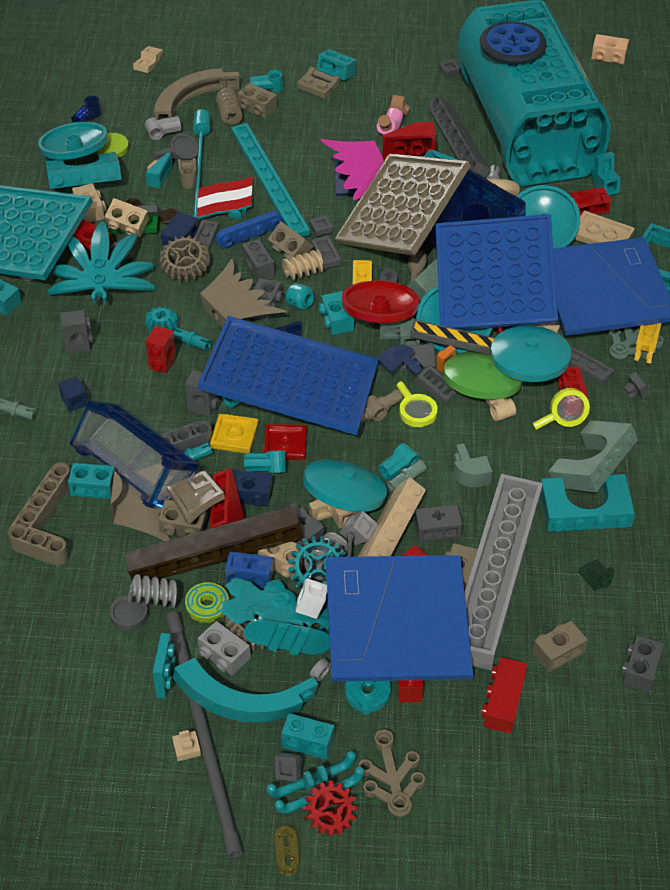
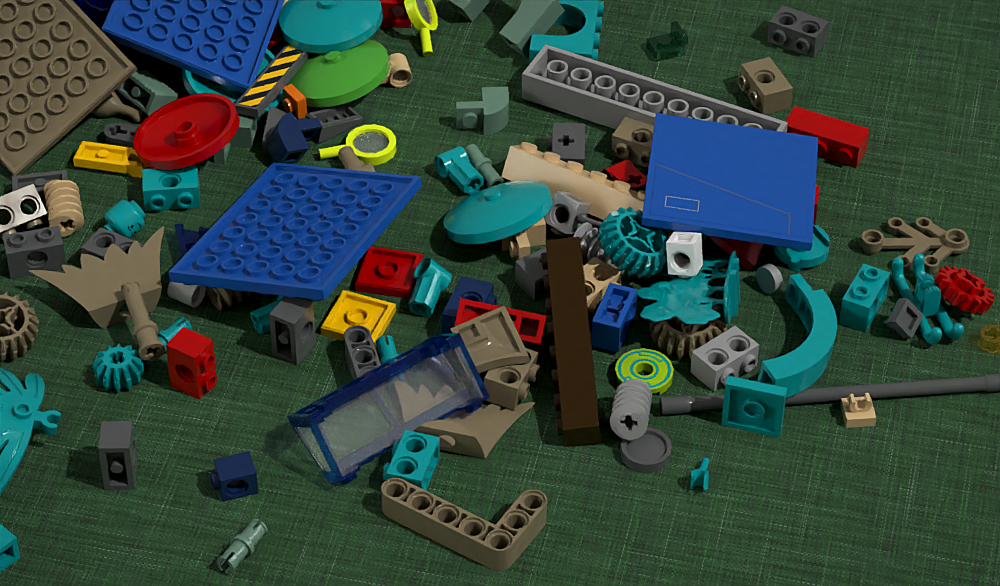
camera: 80 degrees left, 5 degrees down
(100, 645) = (700, 476): none -> teal hand
(185, 320) = (144, 329): none -> dark tan pin

